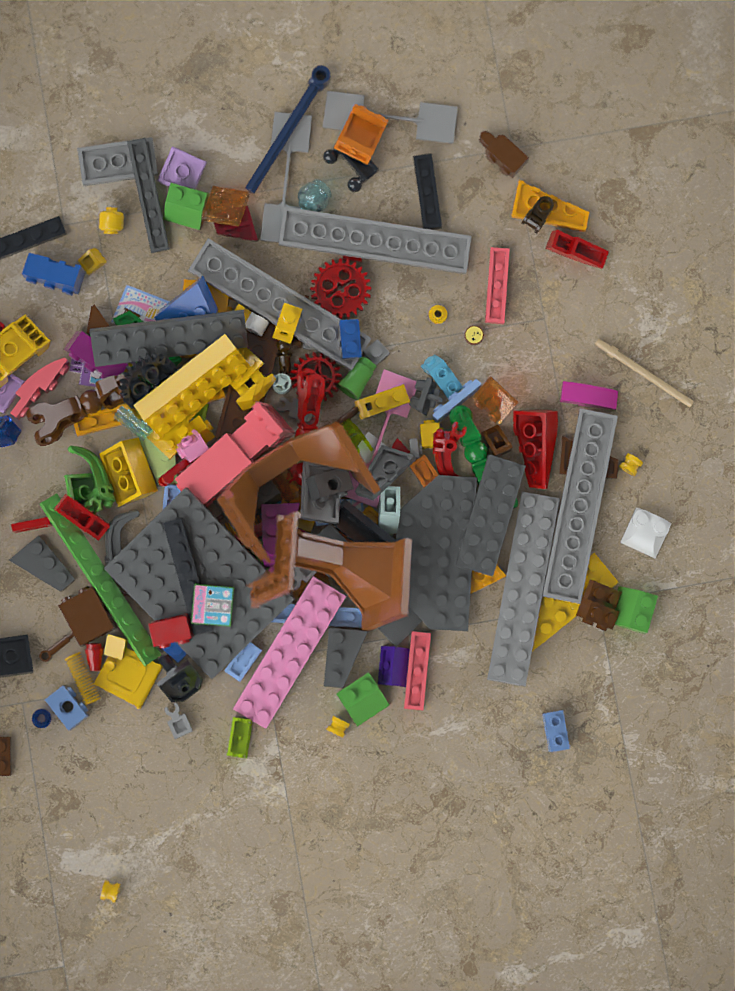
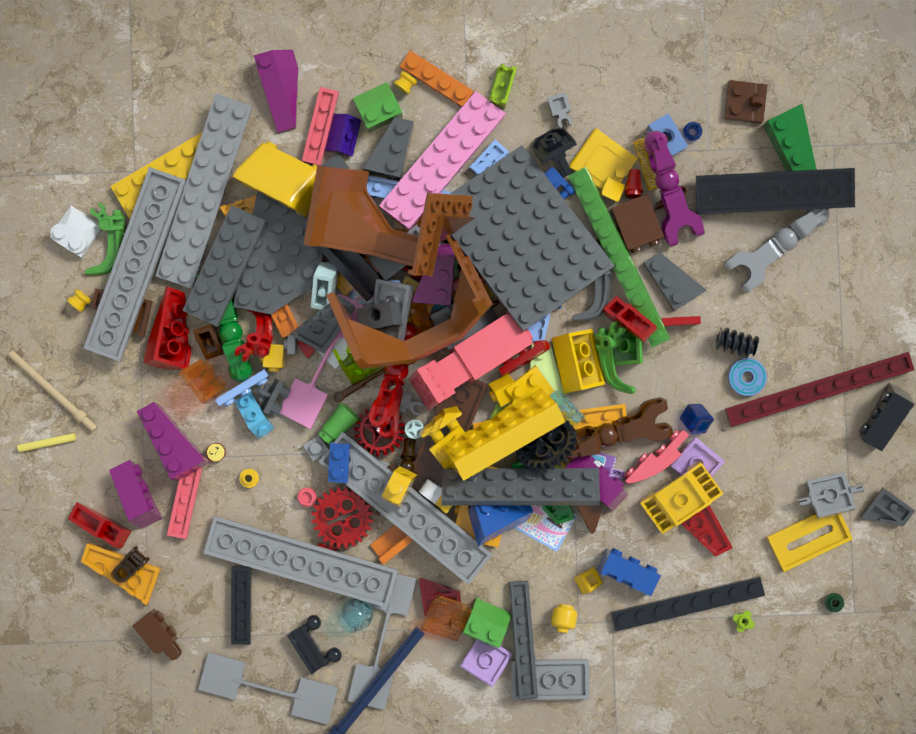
camera: 170 degrees left, 5 degrees up
(61, 660) = (671, 193): none -> magenta piece
(171, 630) = (555, 193): red brick -> none
(184, 566) = (532, 244): black plate -> none
(192, 446) = (511, 373): bright pink brick -> none
(212, 605) = (511, 210): piece -> none
(290, 269) = (390, 543): none -> orange panel
(307, 736) = (436, 79): none -> orange plate
(361, 133) = (298, 673): orange panel -> none
(378, 303) = (307, 497): none -> coral plate
(383, 401) = (316, 395): yellow plate -> none
(448, 610) = (278, 177): none -> yellow windscreen
(464, 711) = (279, 79): none -> magenta wedge
(518, 337) = (171, 443): none -> magenta wedge
(546, 283) = (135, 494): none -> magenta wedge
(556, 731) = (193, 49): medium blue brick -> none
(588, 395) = (111, 375): dark pink slope -> none
(599, 605) = (132, 162): reddish brown plate -> none
(606, 541) = (116, 230): none -> bright green piece
(635, 609) = (99, 156): bright green slope -> none
(641, 322) = (46, 442): none -> light yellow bar

